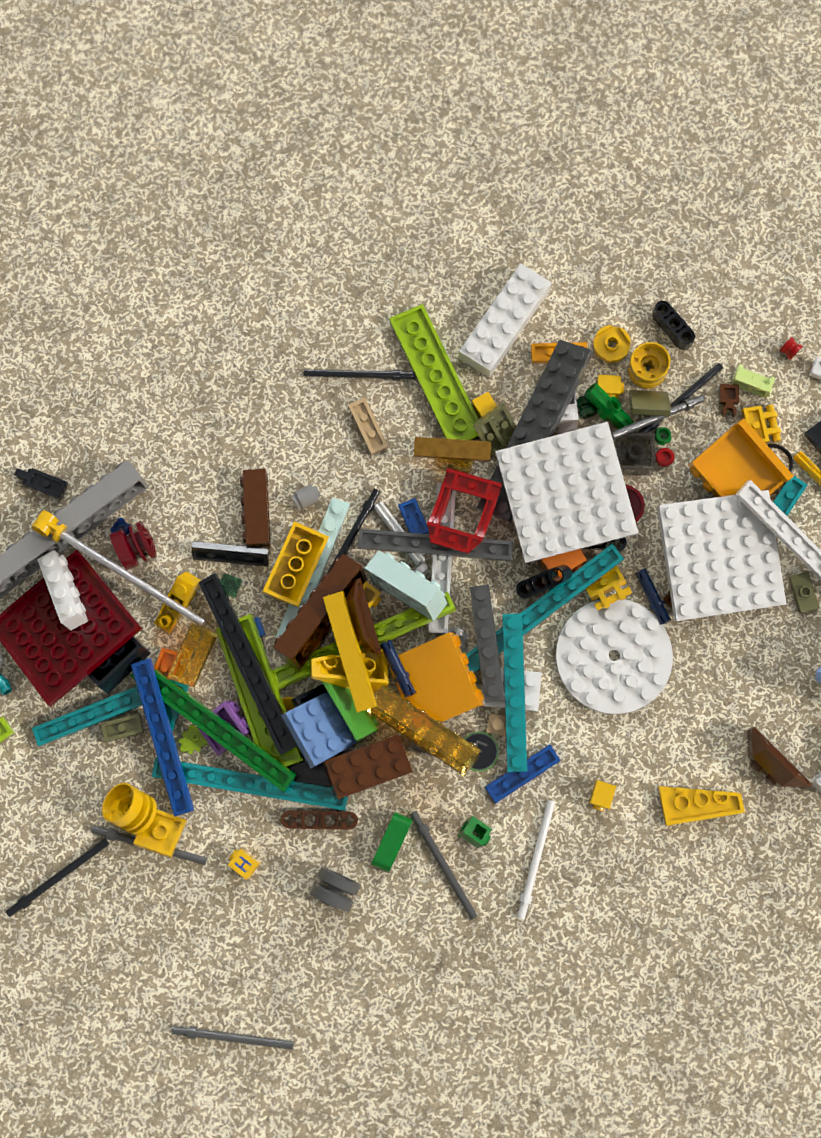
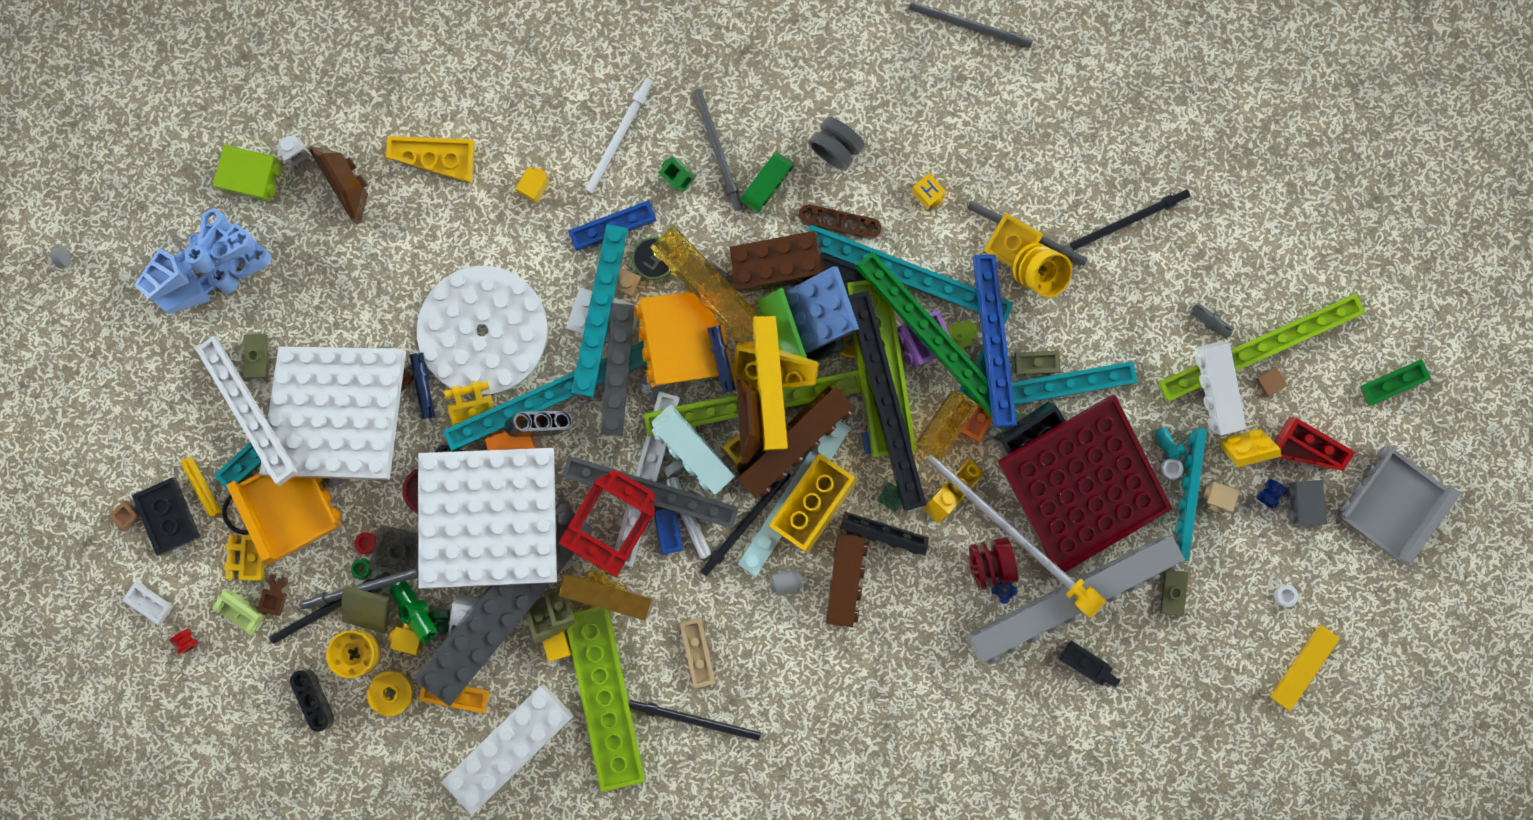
camera: 170 degrees left, 5 degrees up
(62, 590) = (1081, 525): white brick -> none

